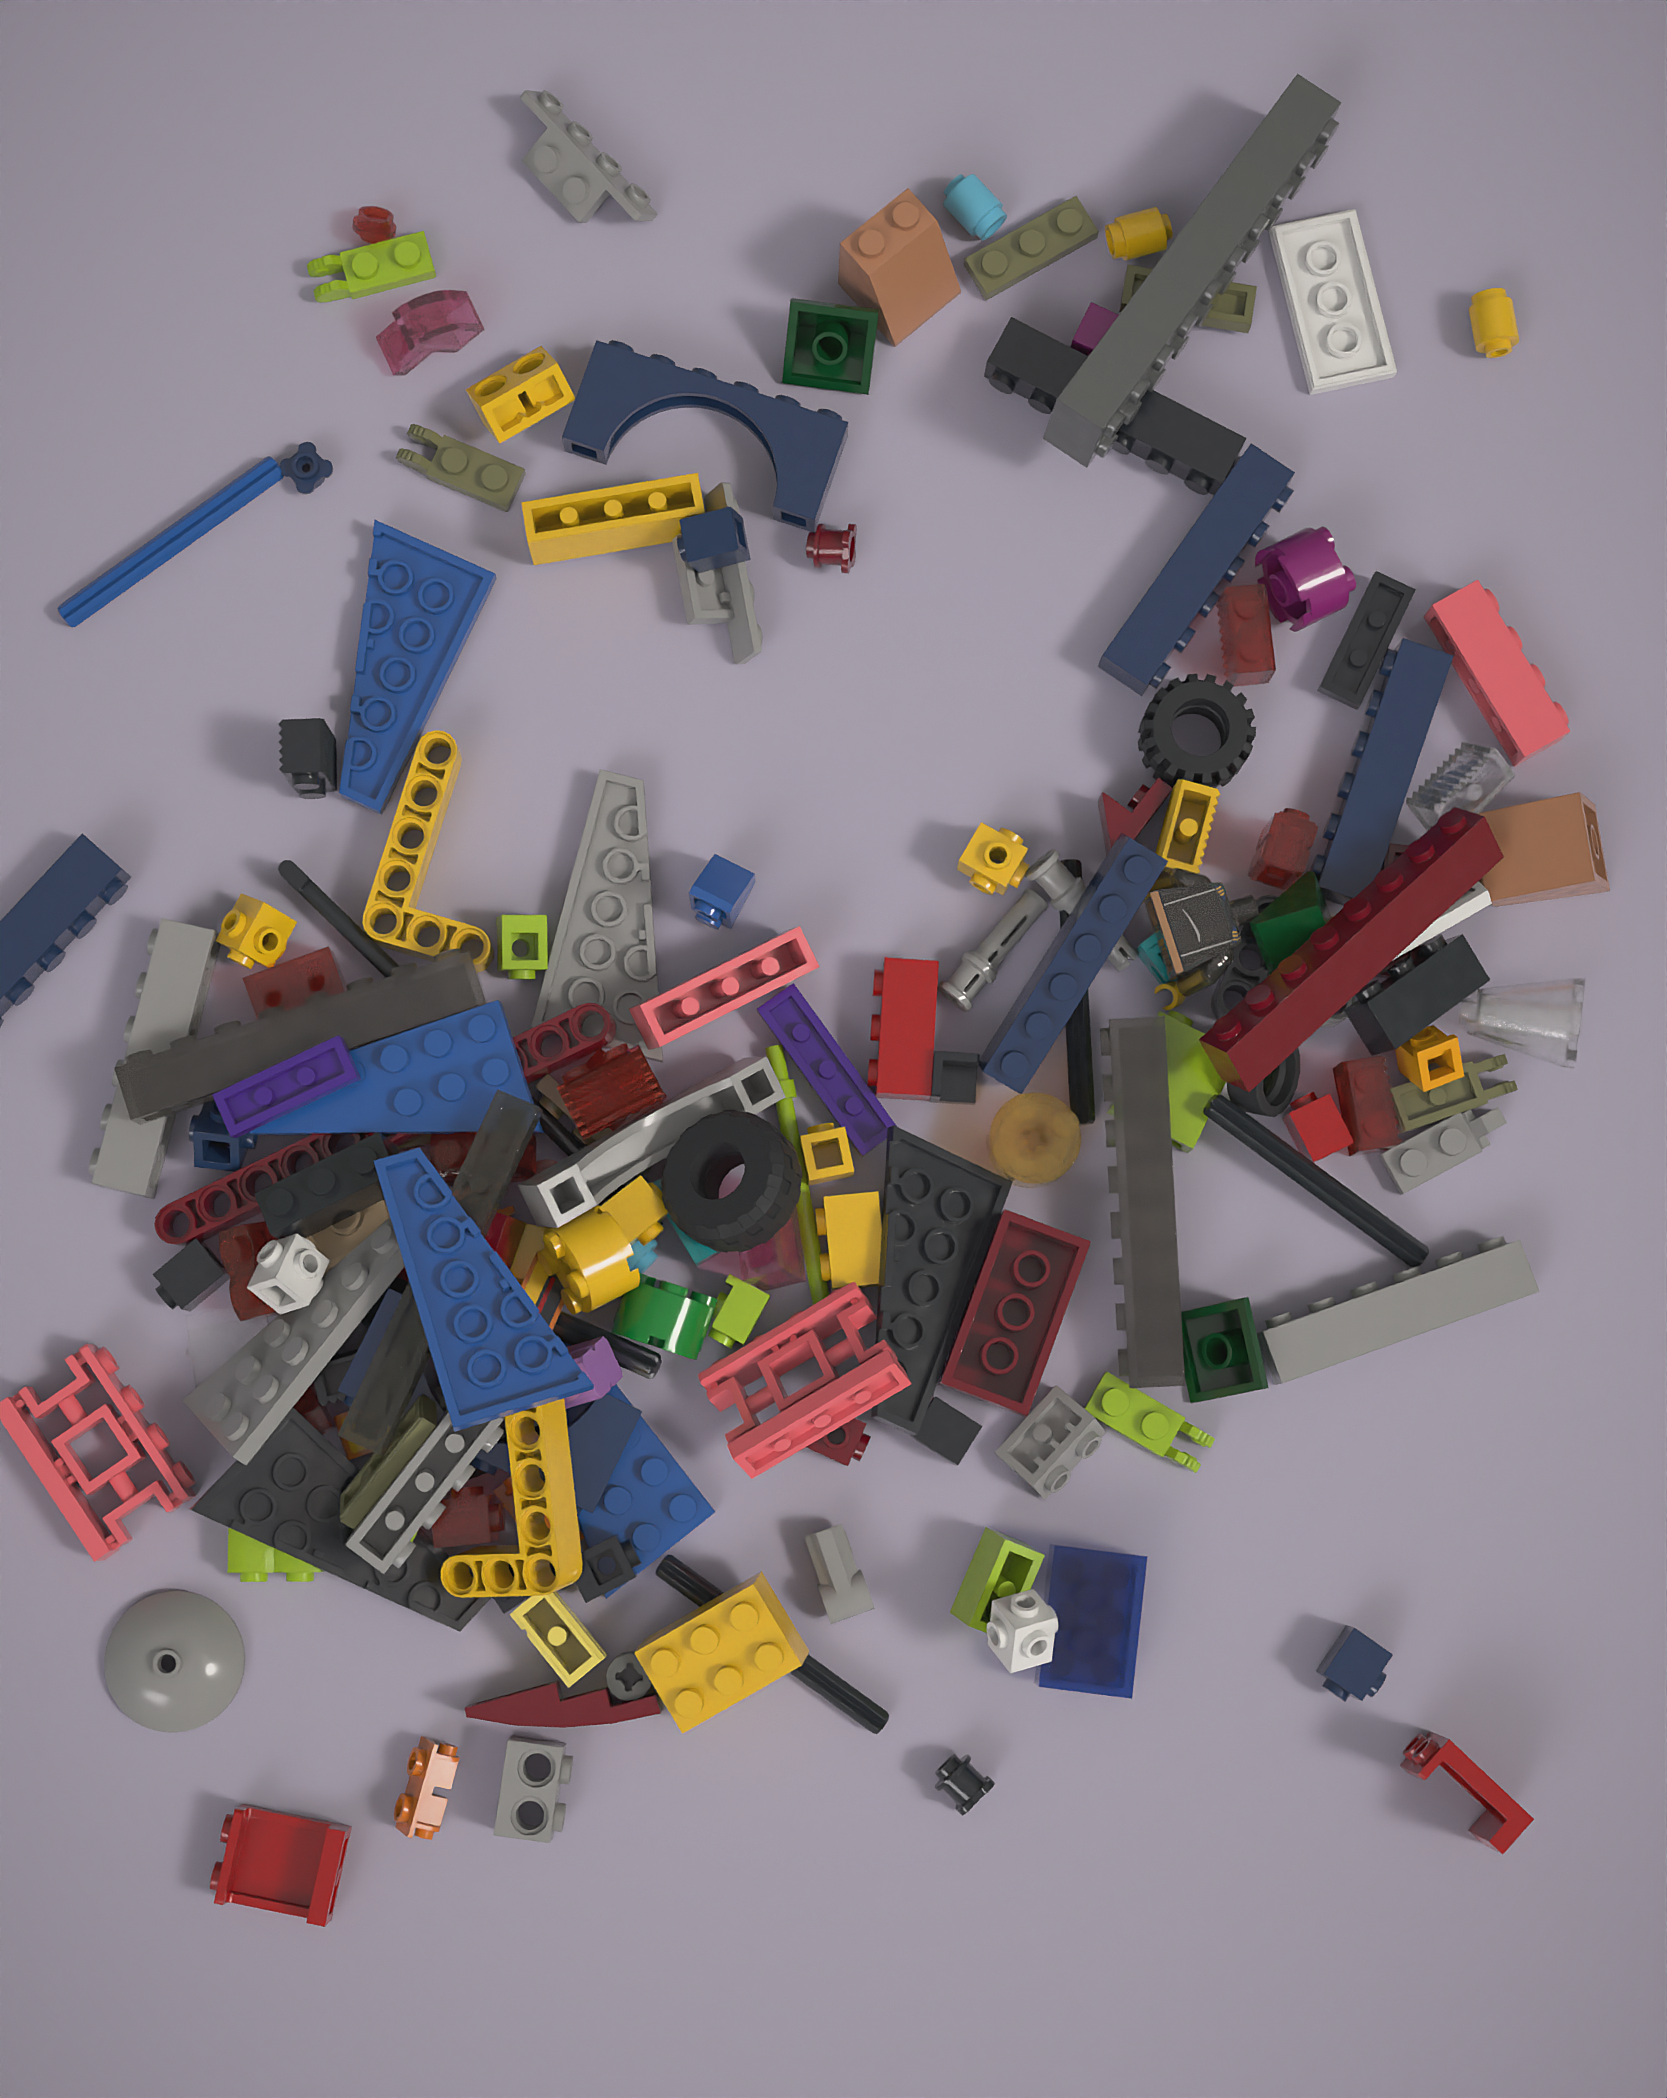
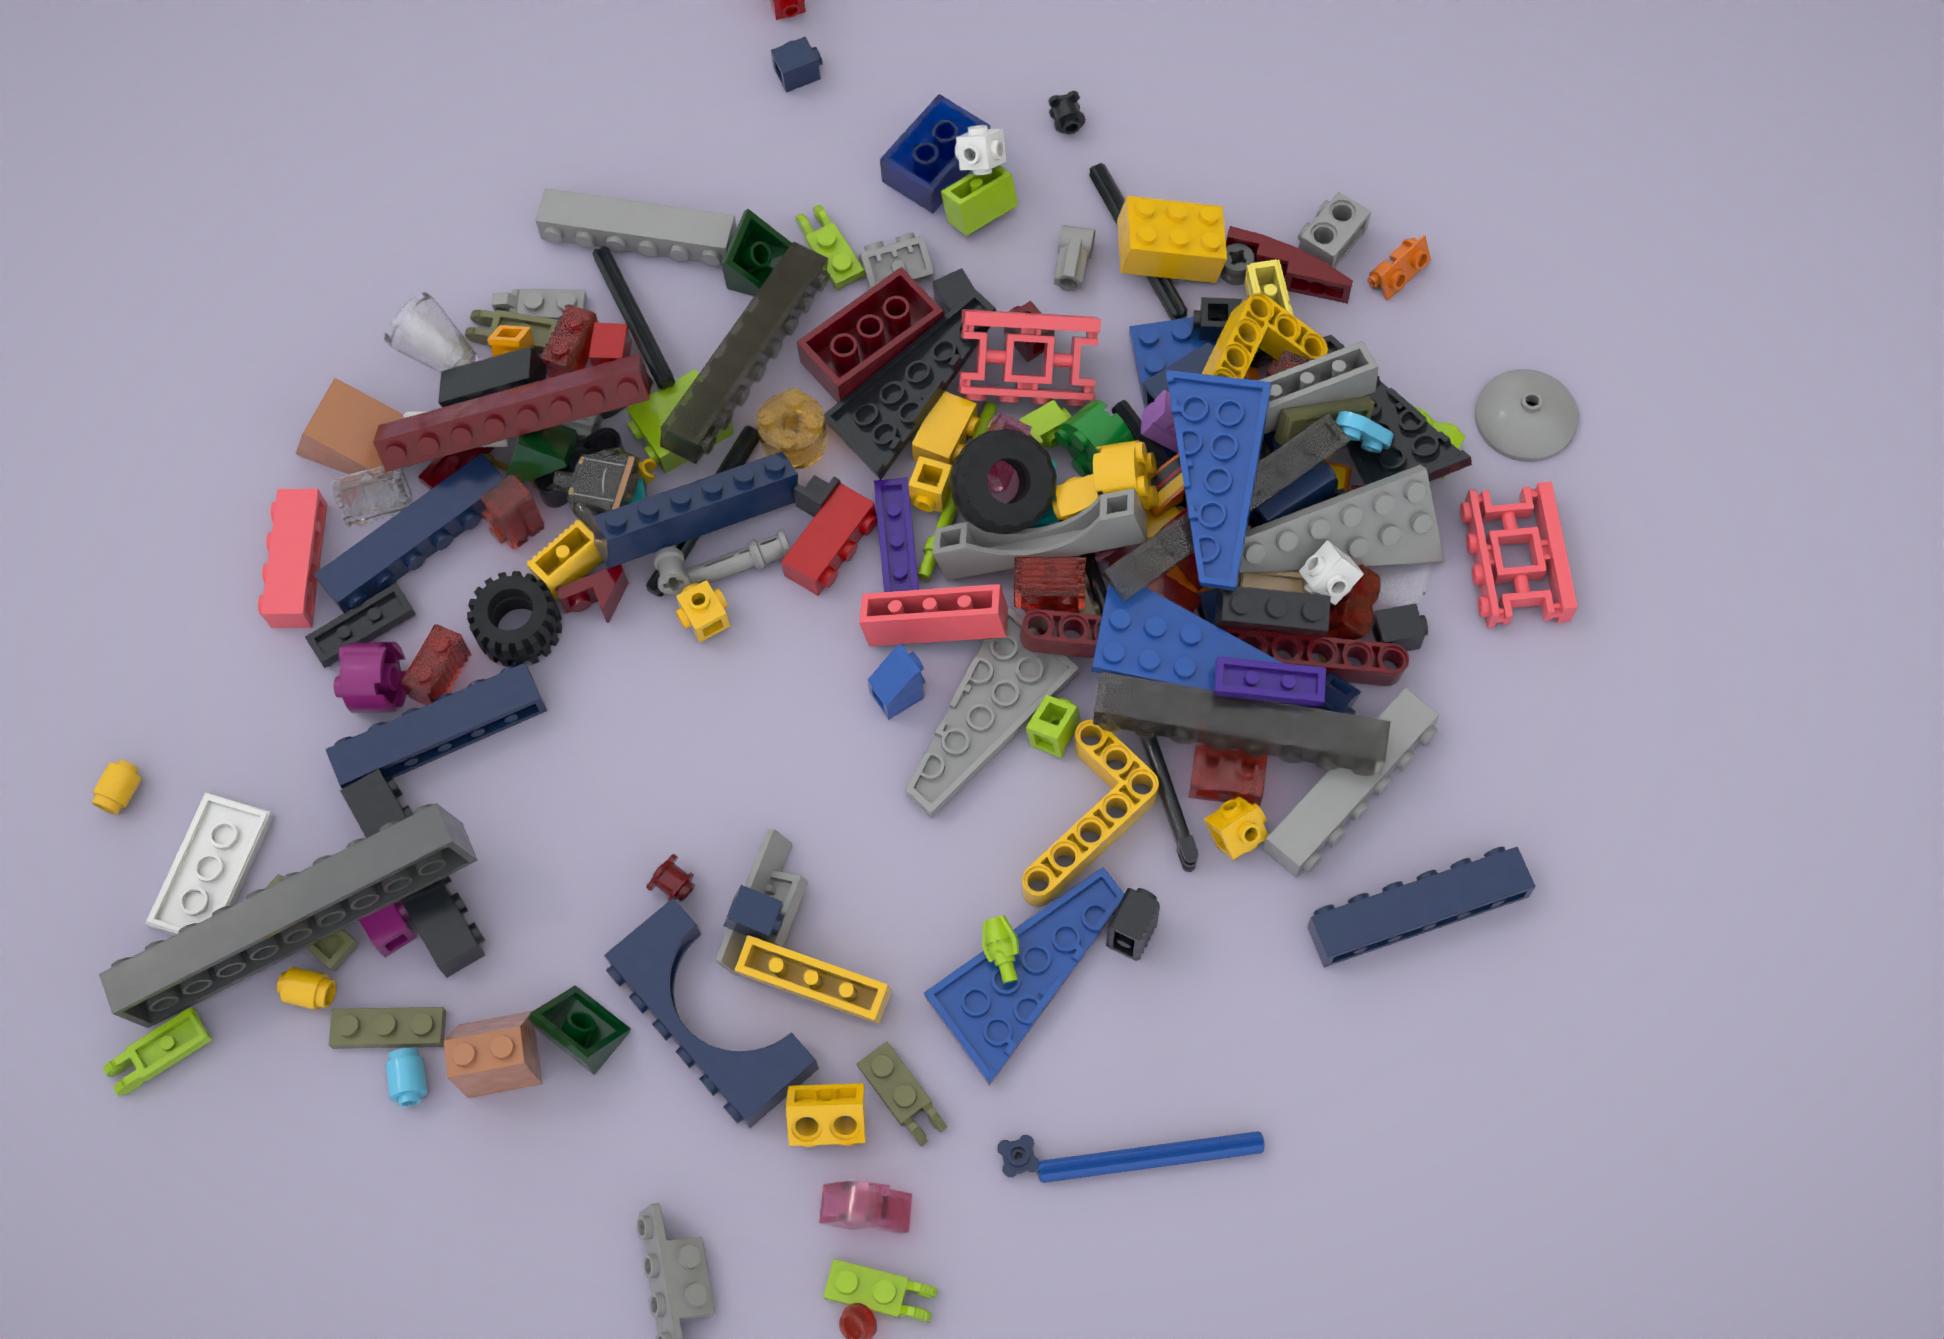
camera: 140 degrees left, 15 degrees down
(281, 1863) = (1511, 269): red panel -> none
(334, 1471) = (1362, 429): none -> medium azure plate
(437, 657) = (1001, 946): none -> lime piece
(1242, 101) = (158, 1050): none -> lime hinge

